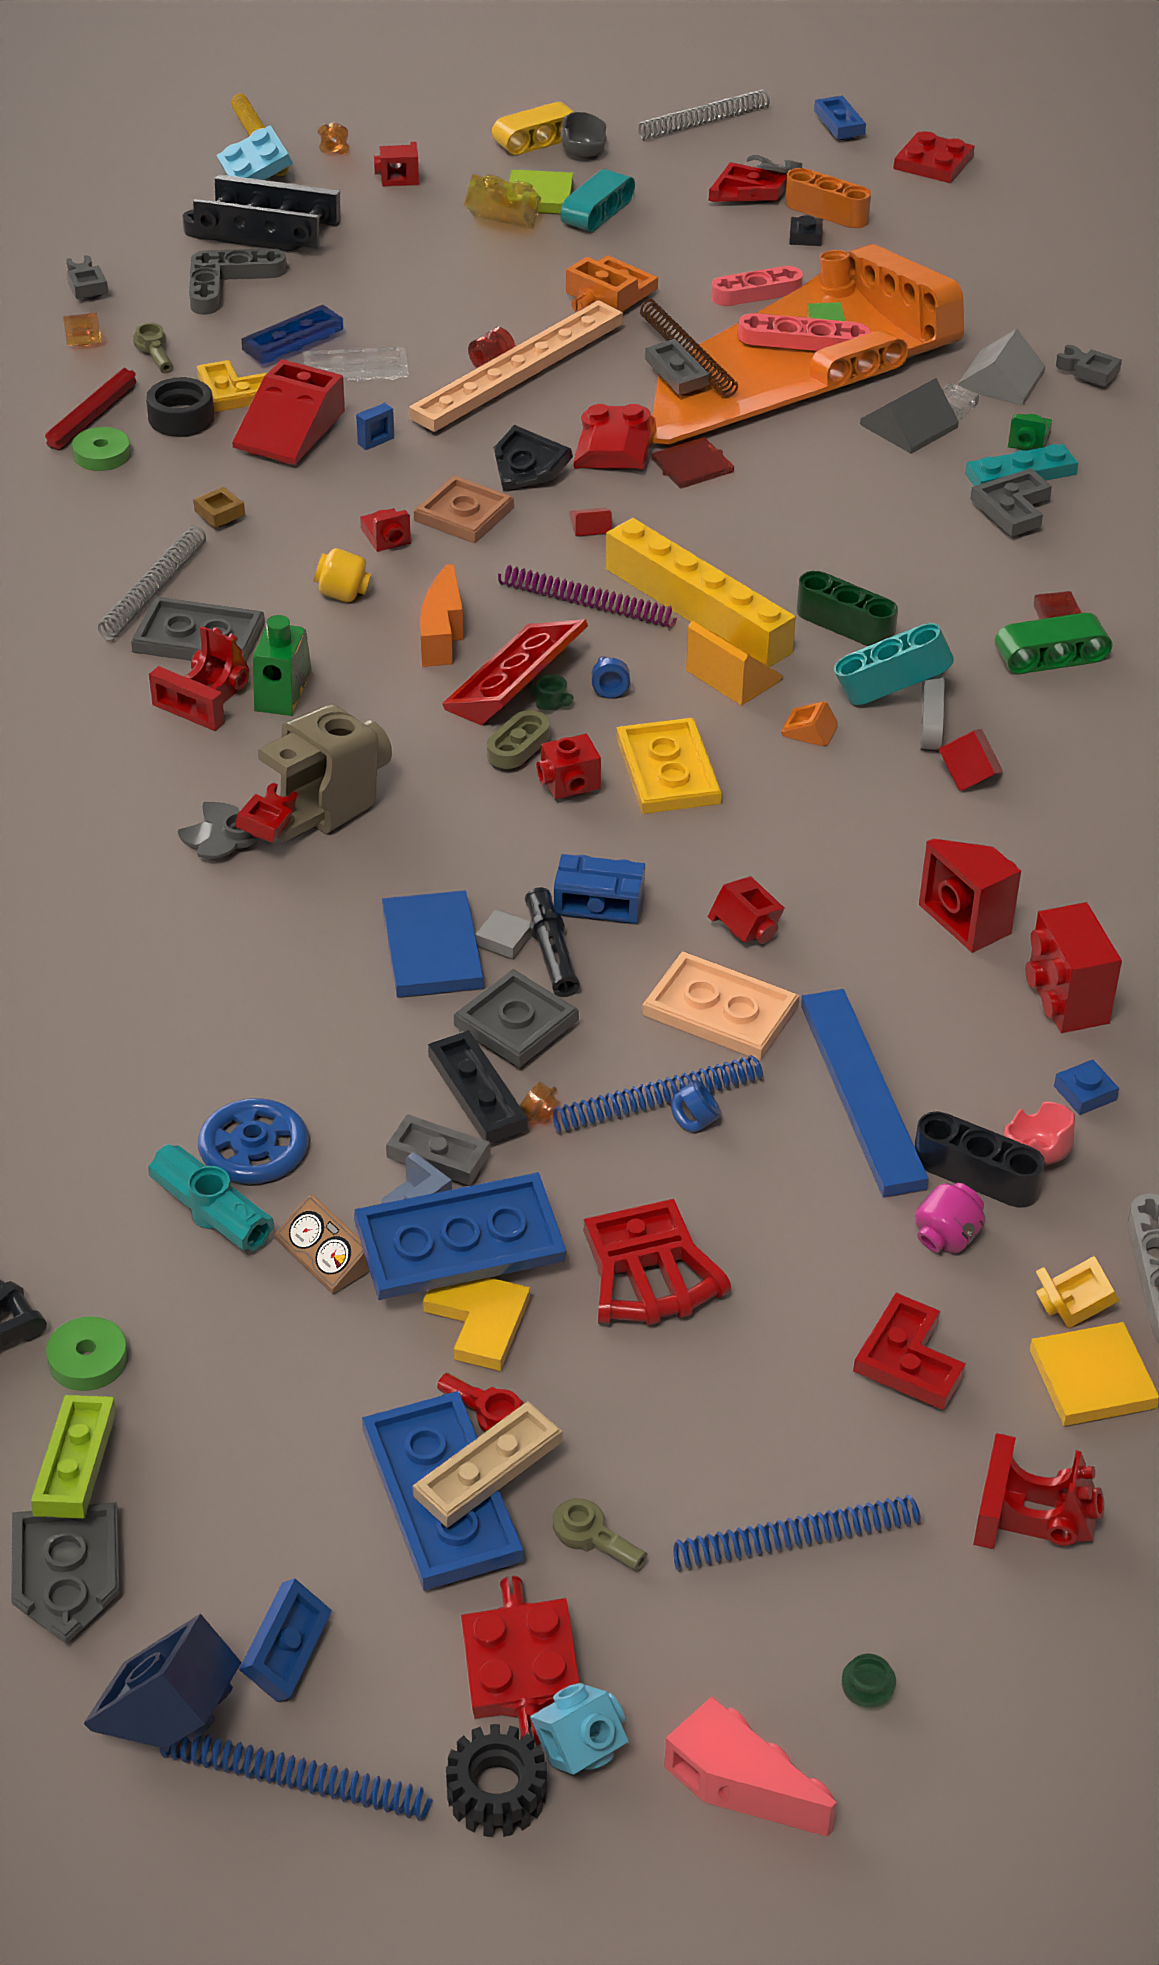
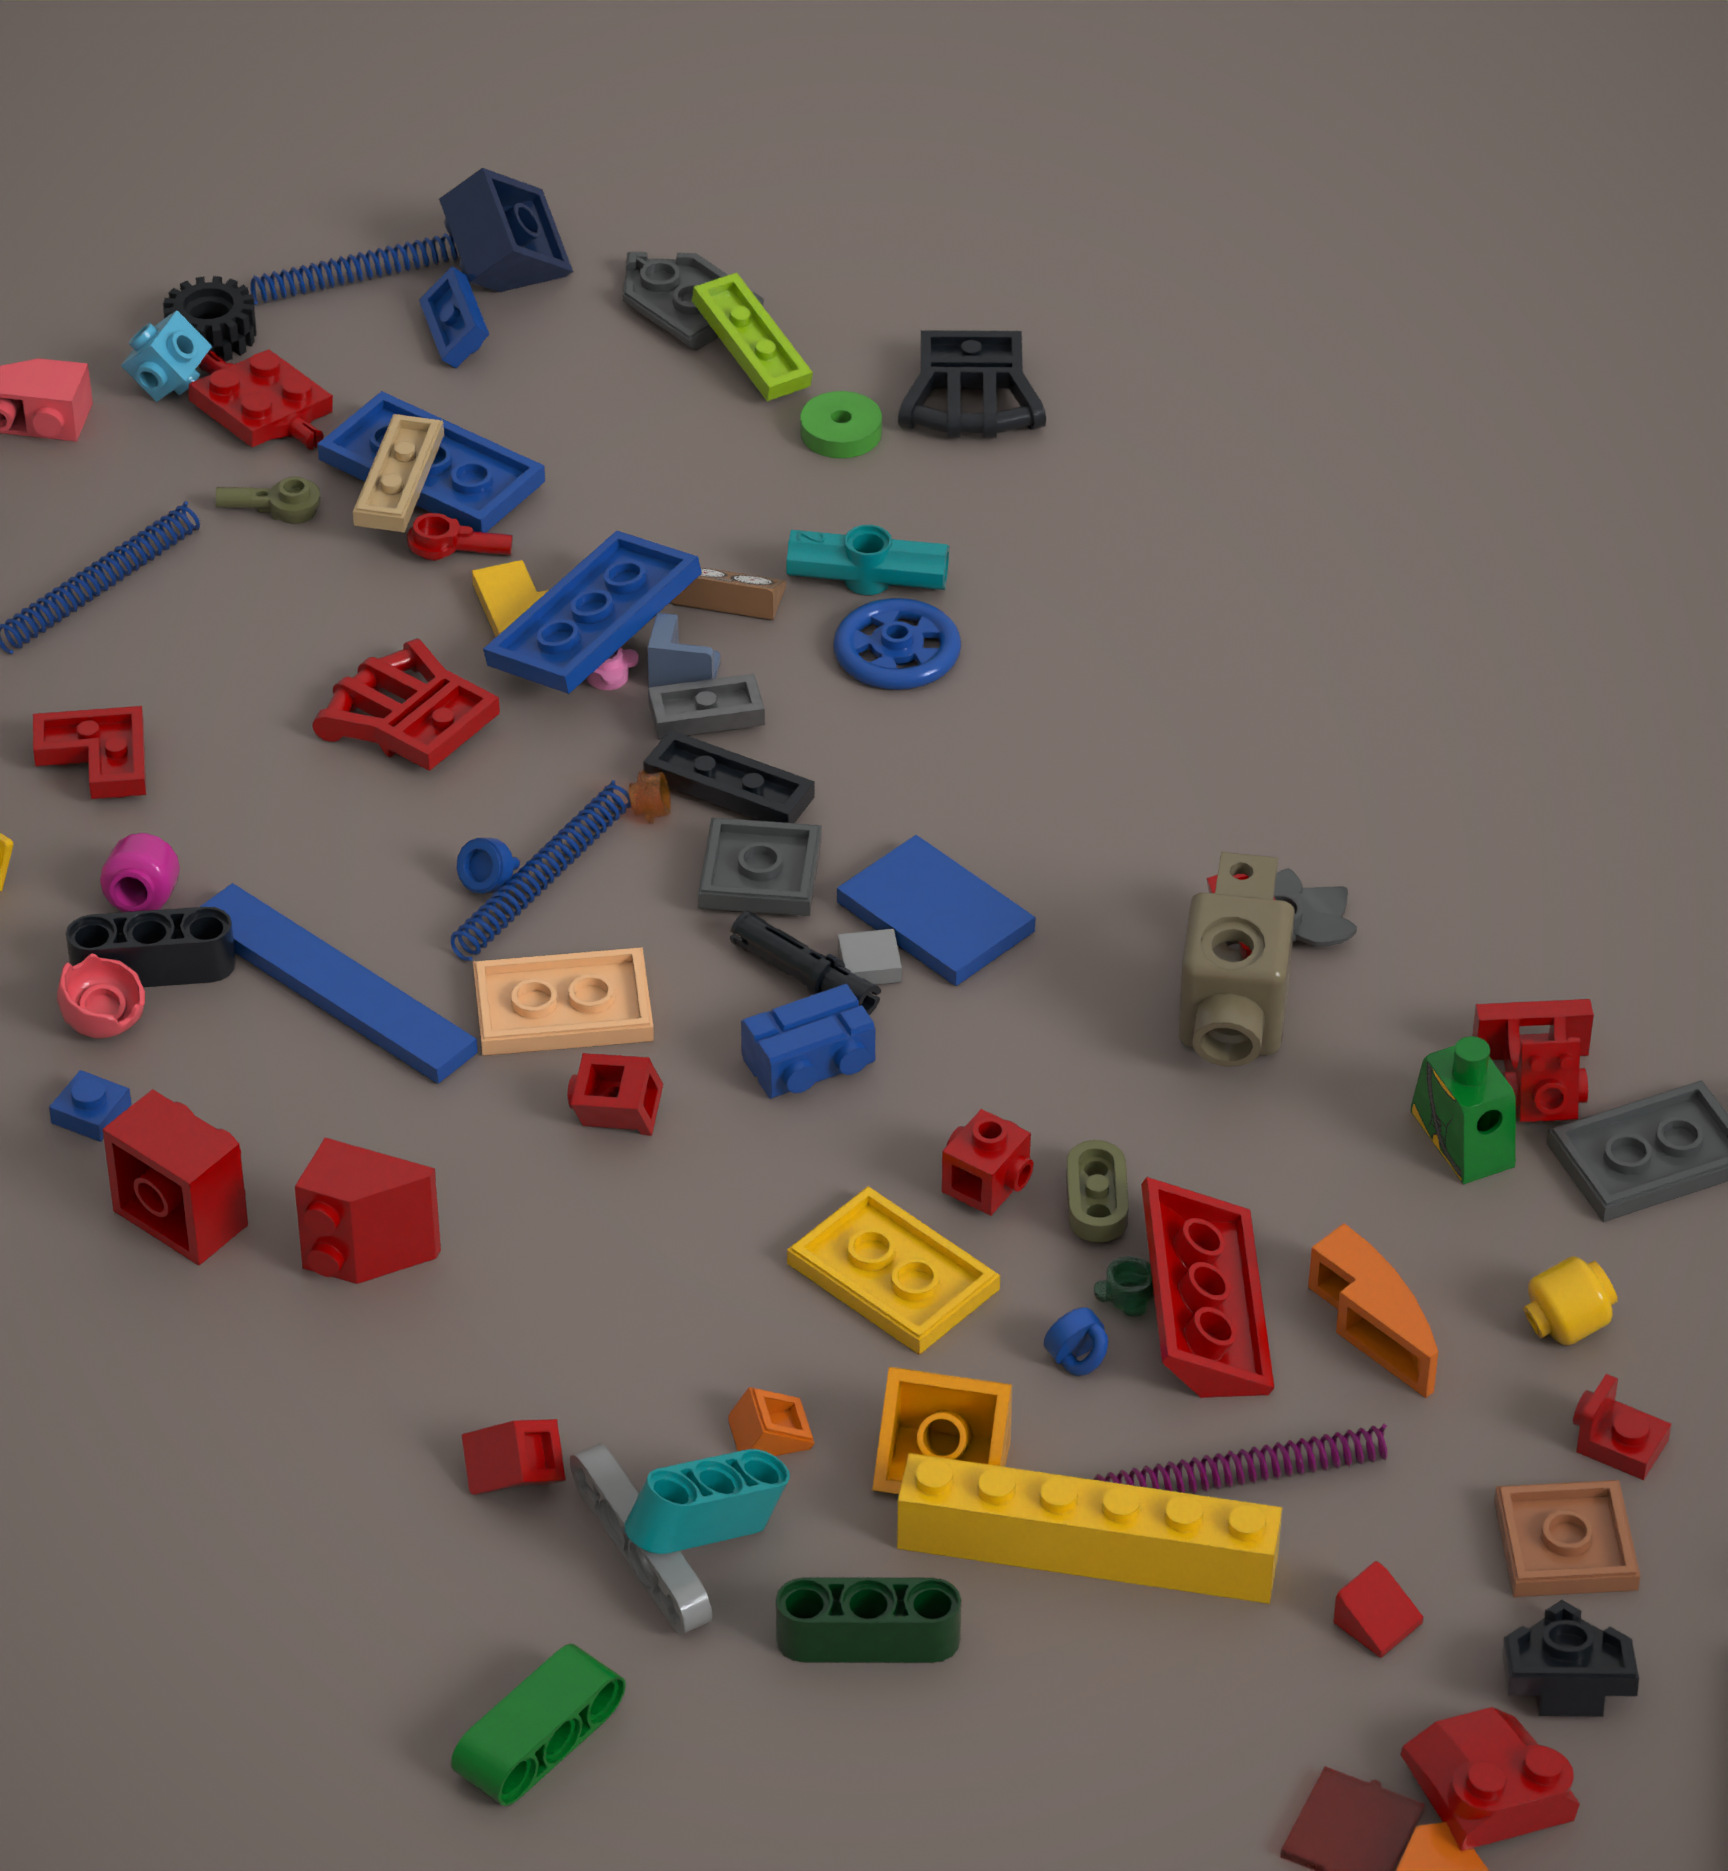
camera: 145 degrees right, 0 degrees up
(1055, 604) = (585, 1824): clear red tile -> none

